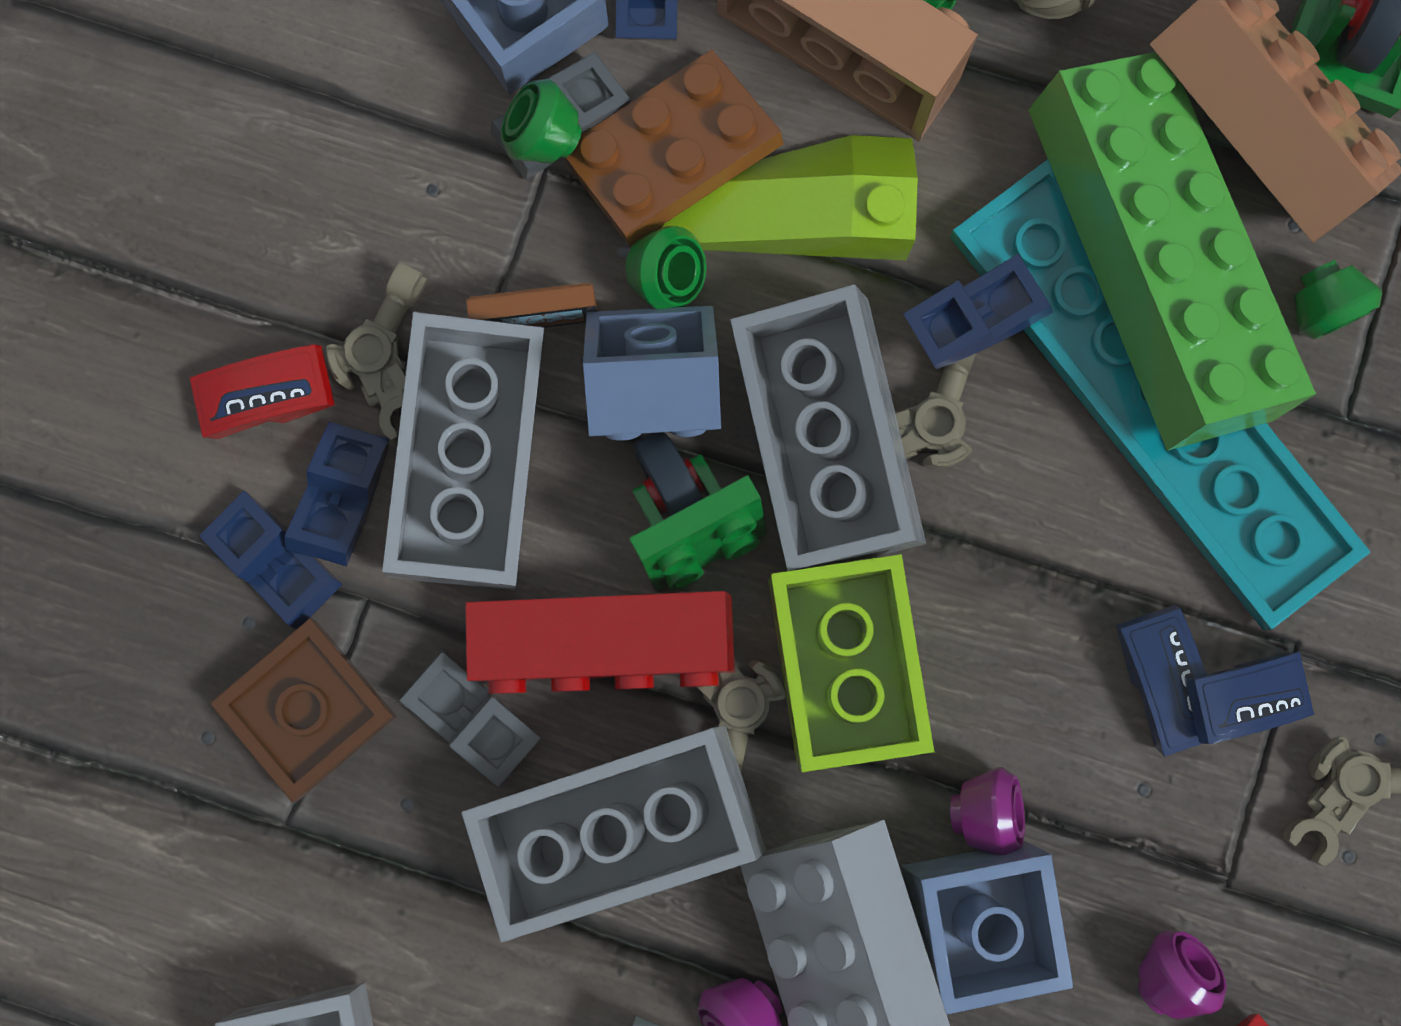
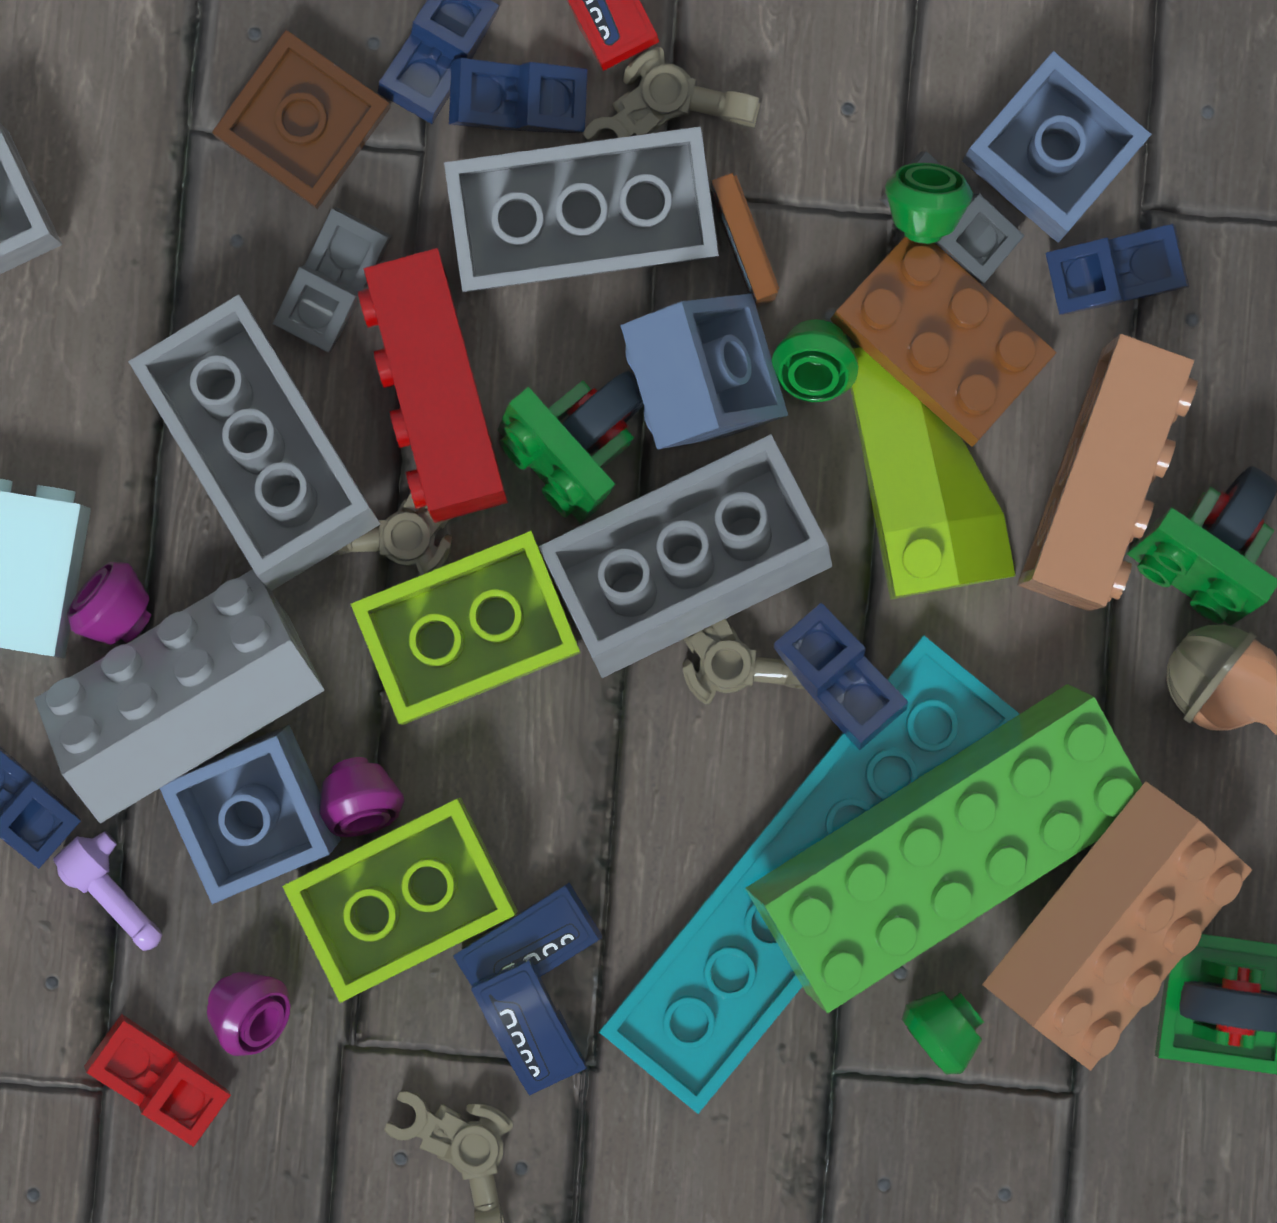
camera: 75 degrees right, 5 degrees up
(1105, 795) = (400, 899): none -> lime brick

